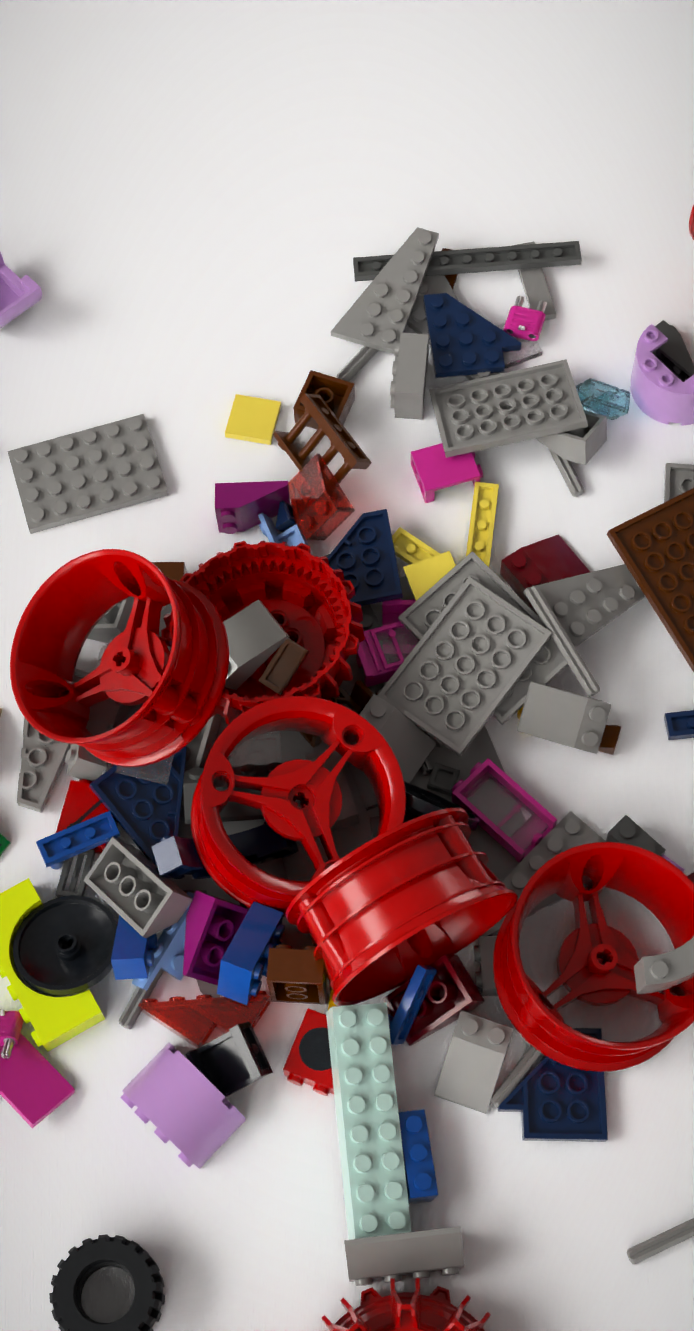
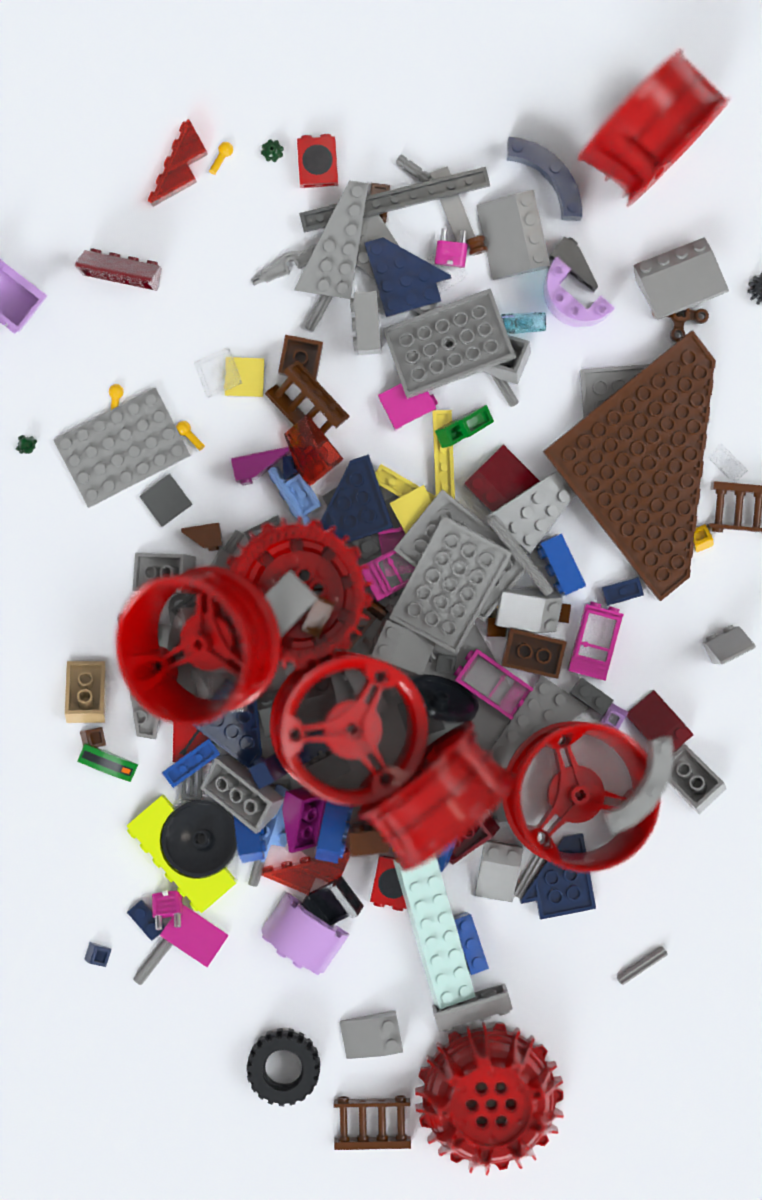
camera: 10 degrees left, 25 degrees up
(96, 415) = (115, 391): none -> yellow bar
(127, 532) = (166, 500): none -> dark grey tile
(130, 287) = (119, 269): none -> slope
(168, 465) = (185, 430): none -> yellow bar
(222, 407) = (217, 372): none -> clear tile
(224, 204) = (177, 173): none -> clear red slope
(248, 1274) = (371, 1036): none -> light grey slope
(281, 198) = (225, 150): none -> yellow bar
(320, 316) = (281, 268): none -> light grey piece
(335, 202) = (272, 150): none -> dark green plant
(384, 218) = (317, 161): none -> red brick
(489, 237) = (412, 168): none -> light grey axle
(511, 502) = (464, 426): none -> green slope
(517, 744) = (493, 630): none -> reddish brown slope
(556, 321) = (476, 245): none -> reddish brown wheel
(563, 777) = (533, 653): none -> reddish brown brick
(602, 317) = (513, 235): none -> light grey slope
(615, 673) = (561, 565): none -> blue brick
(649, 777) = (595, 641): none -> dark pink door
(656, 258) = (552, 170): none -> dark blue brick

